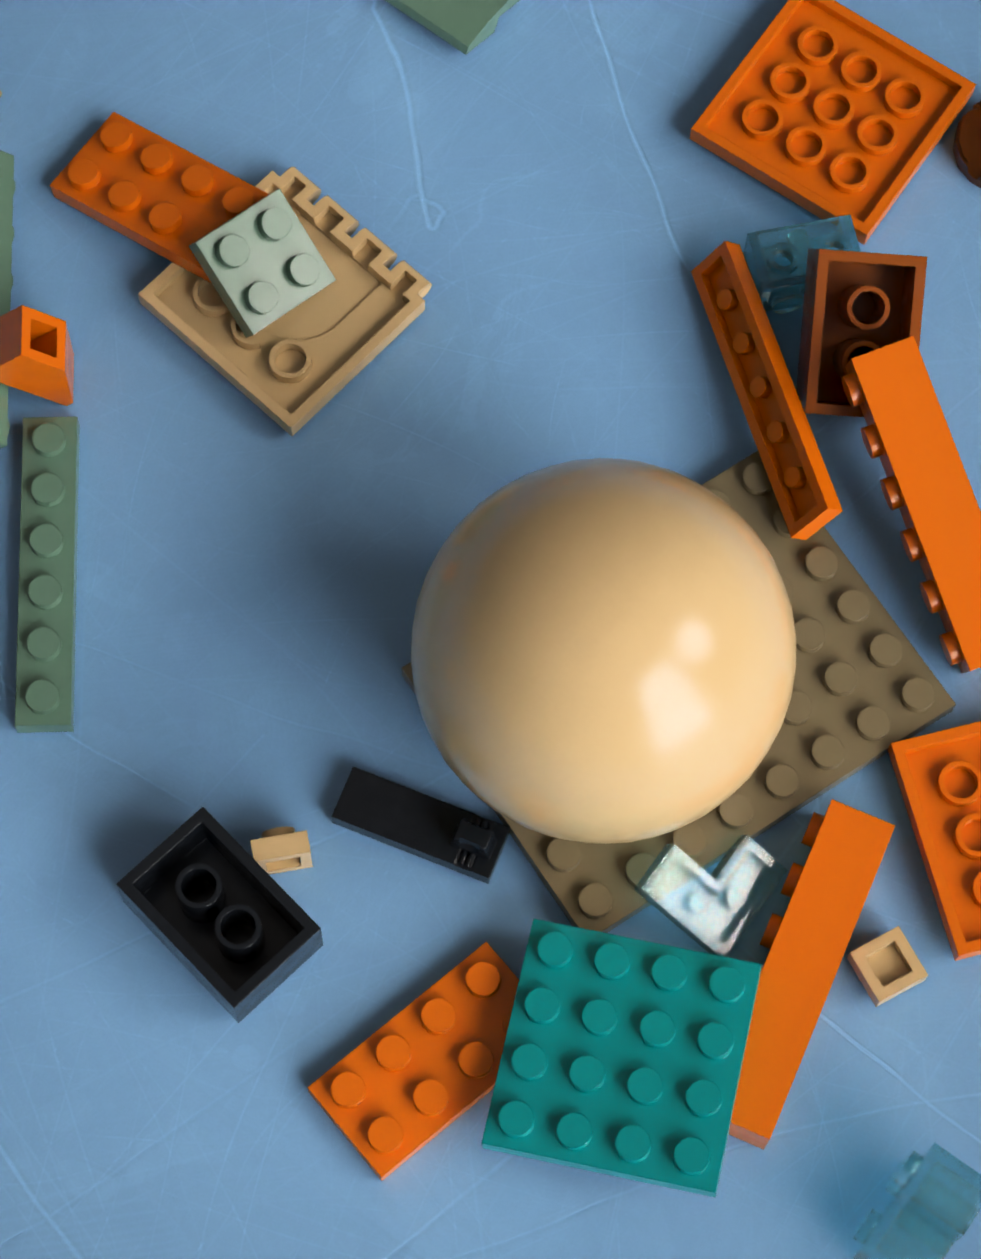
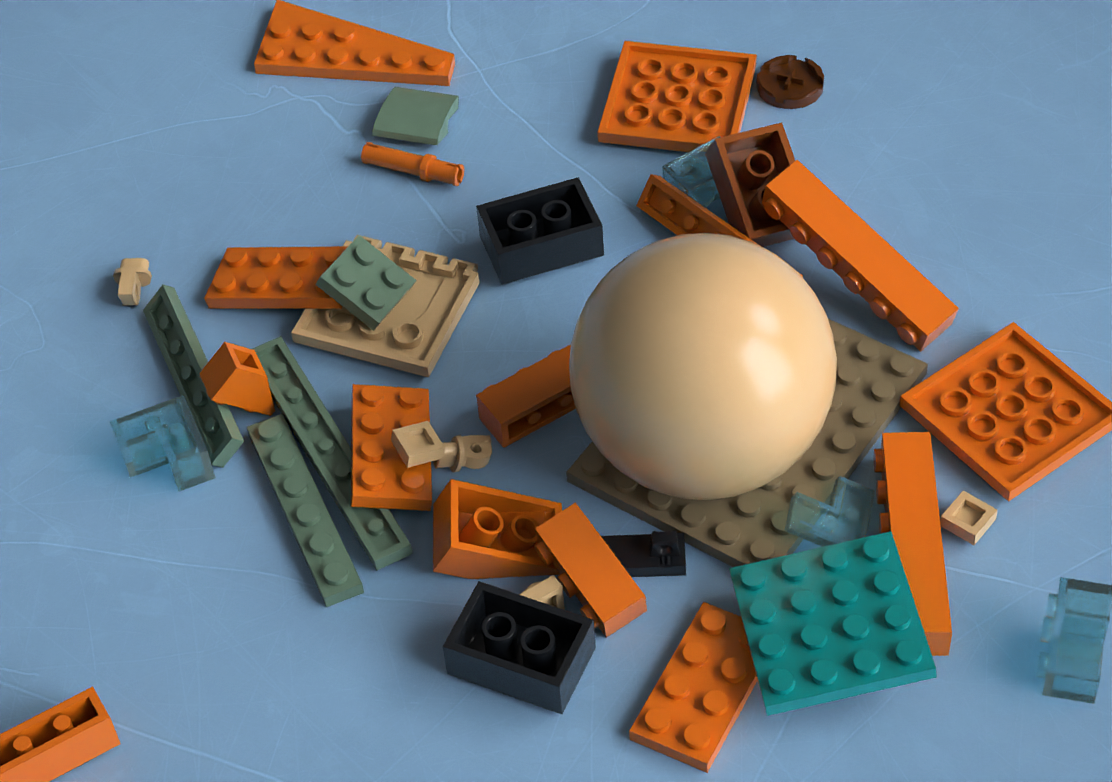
camera: 15 degrees left, 20 degrees down
(111, 503) = (328, 453): none -> sand green plate
(190, 534) = (377, 469): none -> orange plate
(216, 559) = (417, 444): none -> tan plate
(270, 726) = (488, 532): none -> orange slope
(277, 580) = (466, 451): none -> tan piece
(356, 840) = (589, 570): none -> orange brick
(401, 531) = (528, 398): none -> orange brick
(433, 85) = (425, 166): none -> orange pin
(535, 268) = (540, 230): none -> black brick

